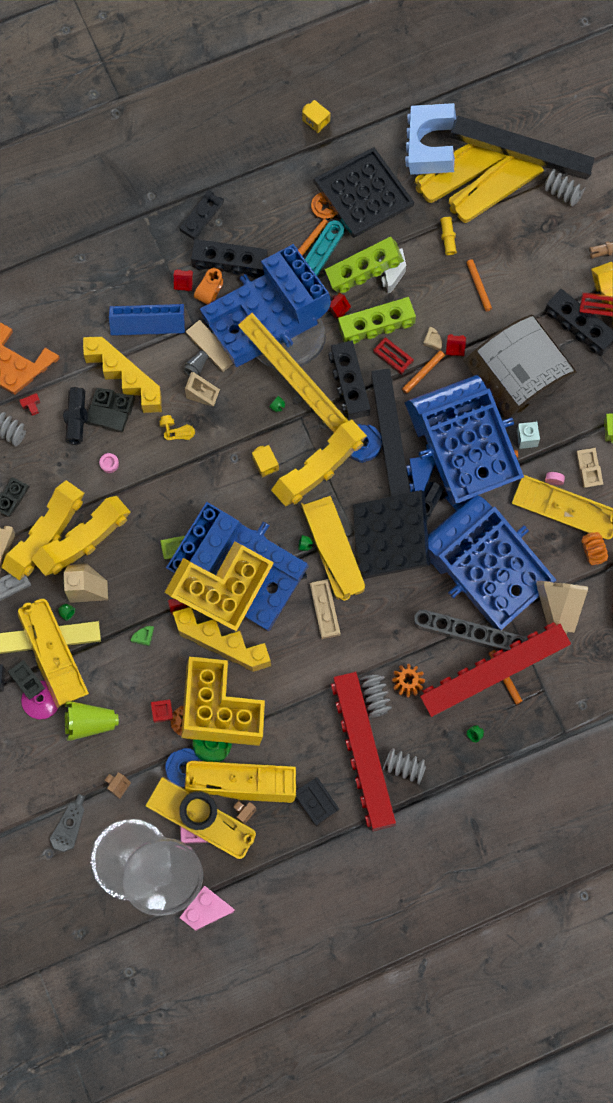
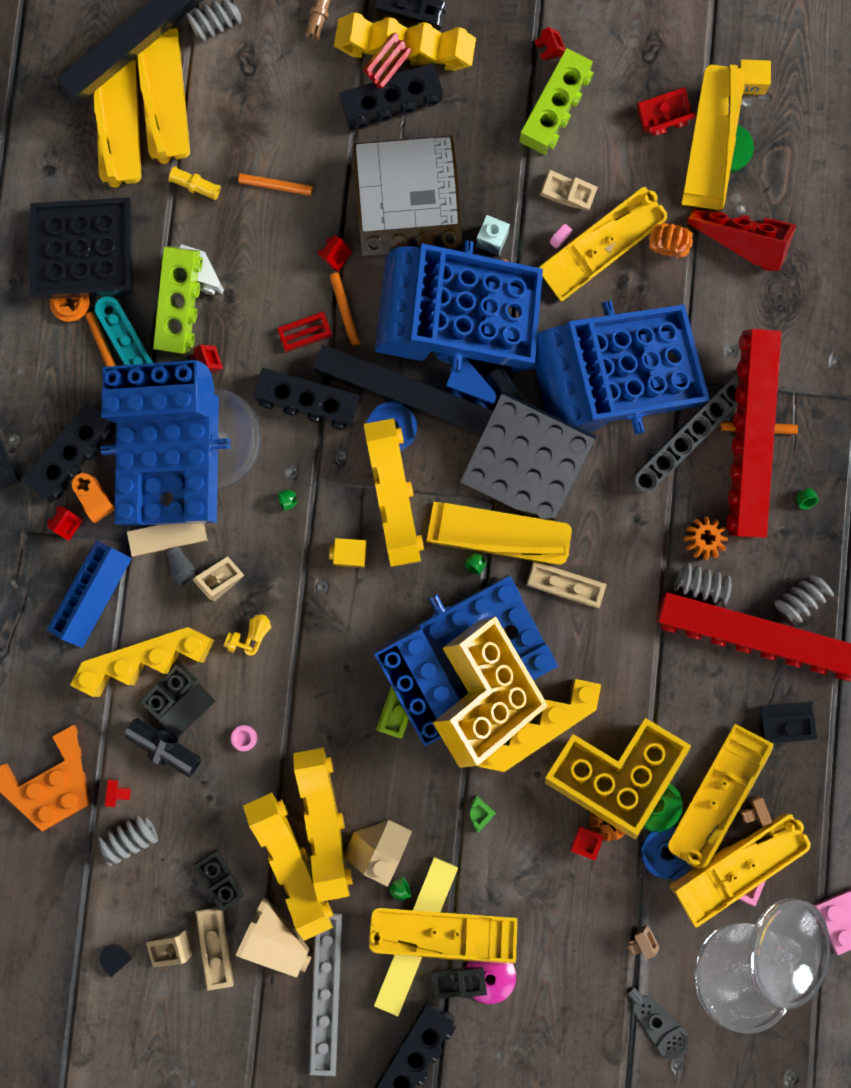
camera: 60 degrees left, 10 degrees up
(88, 720) = (550, 937): lime cone -> none
(199, 825) = (756, 874): black tyre -> none
(292, 372) = (266, 459): yellow tile -> none
(383, 313) = (254, 287): lime brick -> none
(423, 120) = (82, 153): light blue arch -> none
(433, 339) = (311, 275): tan tile -> none
(562, 603) = (718, 313): tan slope -> none

